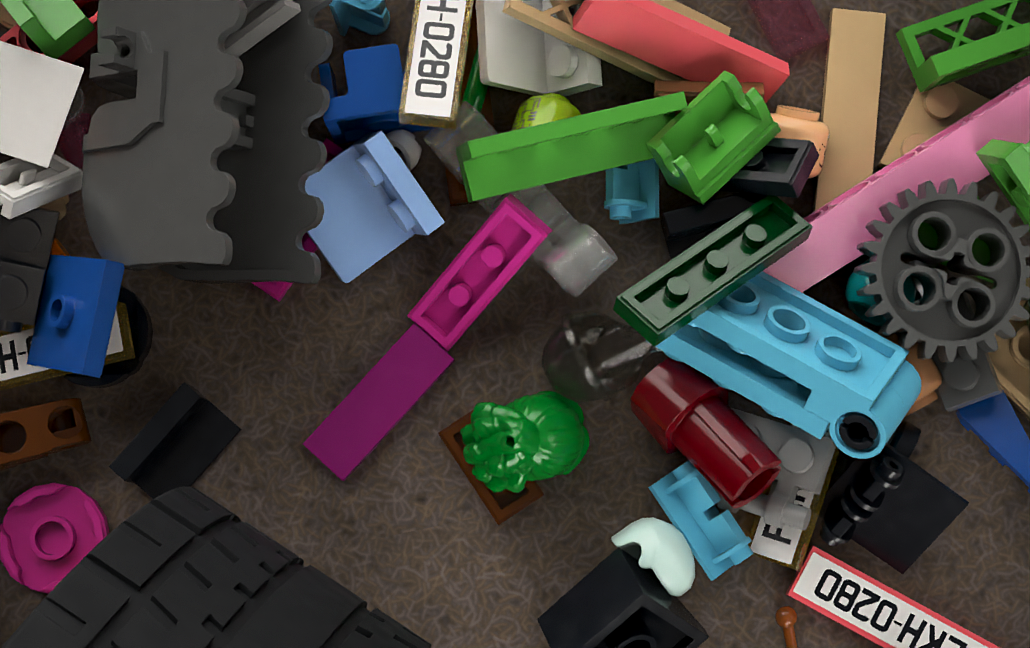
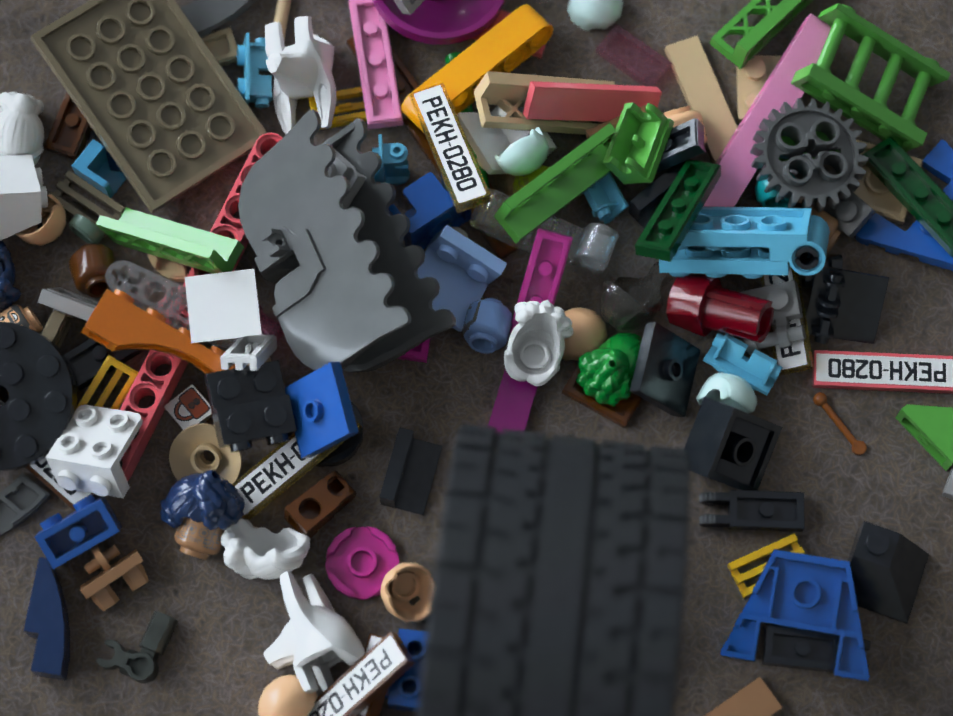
camera: 30 degrees left, 10 degrees down
(381, 293) = (487, 325): none -> medium blue head
(426, 356) = (537, 342): none -> white hair
(500, 363) = (588, 332): none -> light nougat hair
(544, 80) = (525, 154): none -> light aqua hair
(587, 477) = (665, 370): none -> black plate

